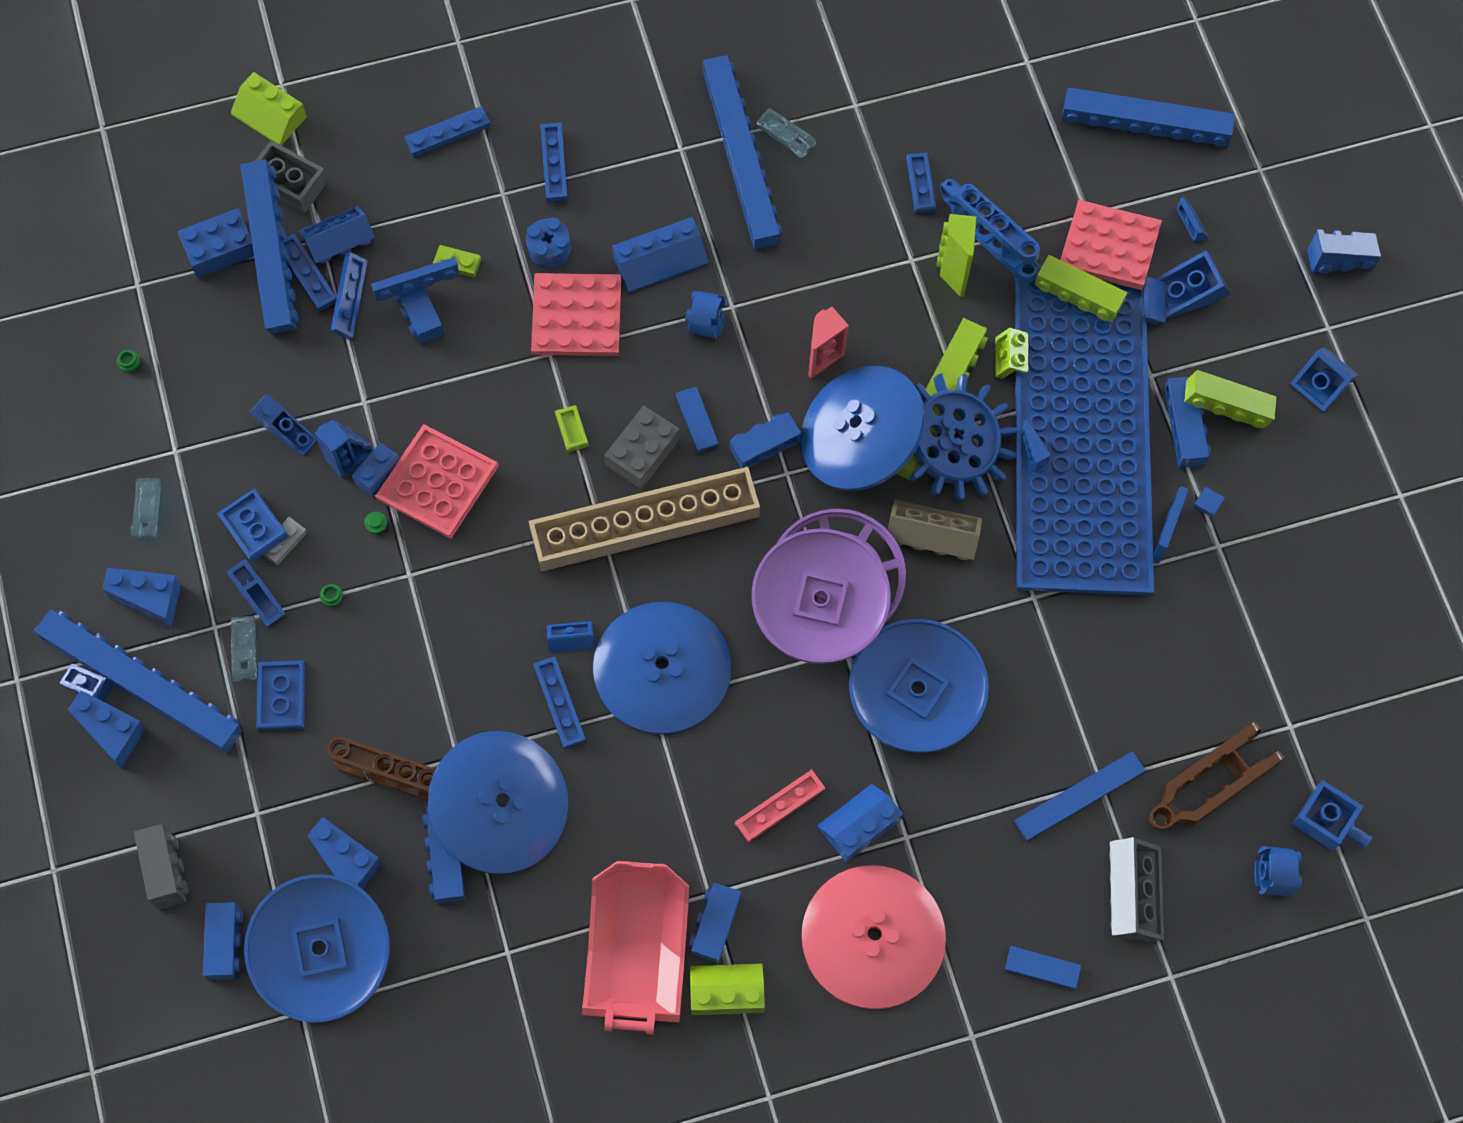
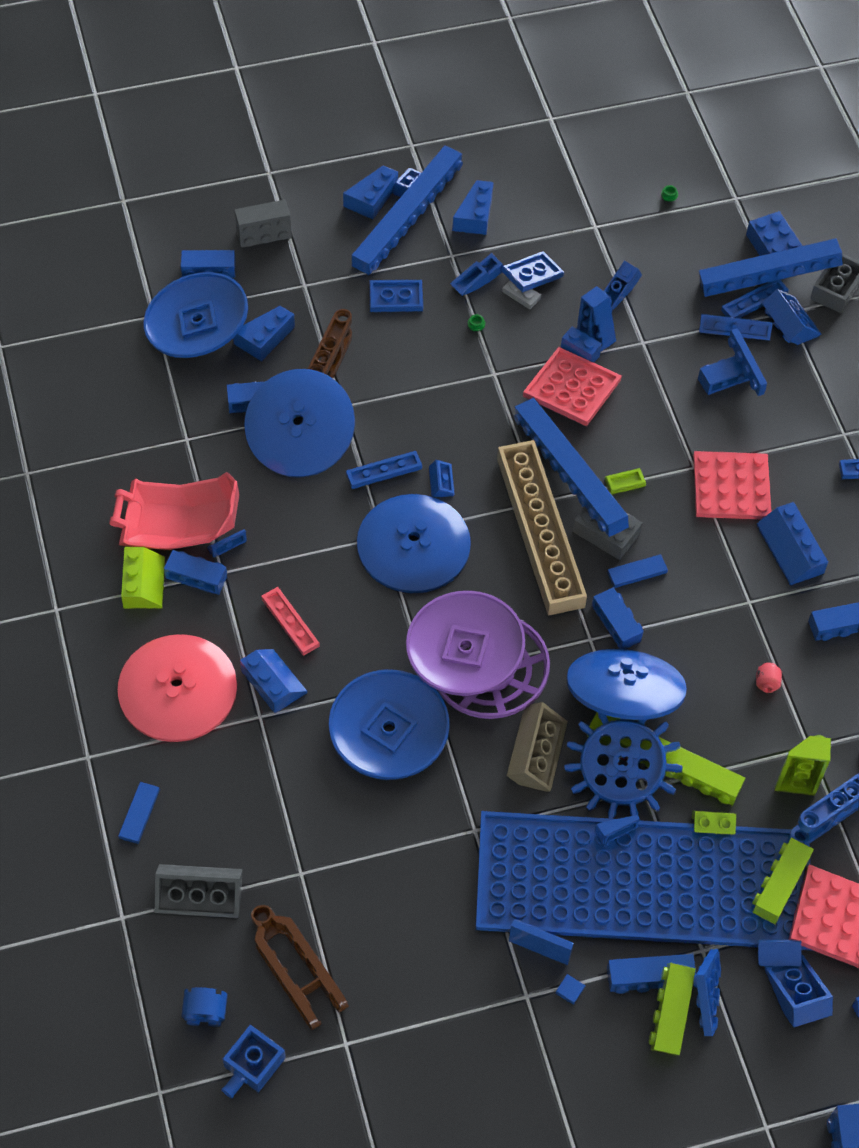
camera: 90 degrees right, 10 degrees down
(146, 507) = (546, 210): clear light blue plate -> none
(243, 647) = (433, 270): clear light blue plate -> none
(375, 522) = (537, 350): green plate -> none
(467, 262) = (775, 401): lime plate -> none
(548, 243) = (795, 461): blue brick -> none
(566, 480) = (571, 468): none -> blue brick
(706, 314) = (734, 573): blue brick -> none
(828, 340) = (708, 657): coral slope -> none
(833, 290) = (768, 677): none -> coral head
(1079, 796) = (288, 854): blue tile -> none
(1206, 365) = (708, 995): none -> blue plate
(1324, 378) = (706, 1110): blue slope -> none

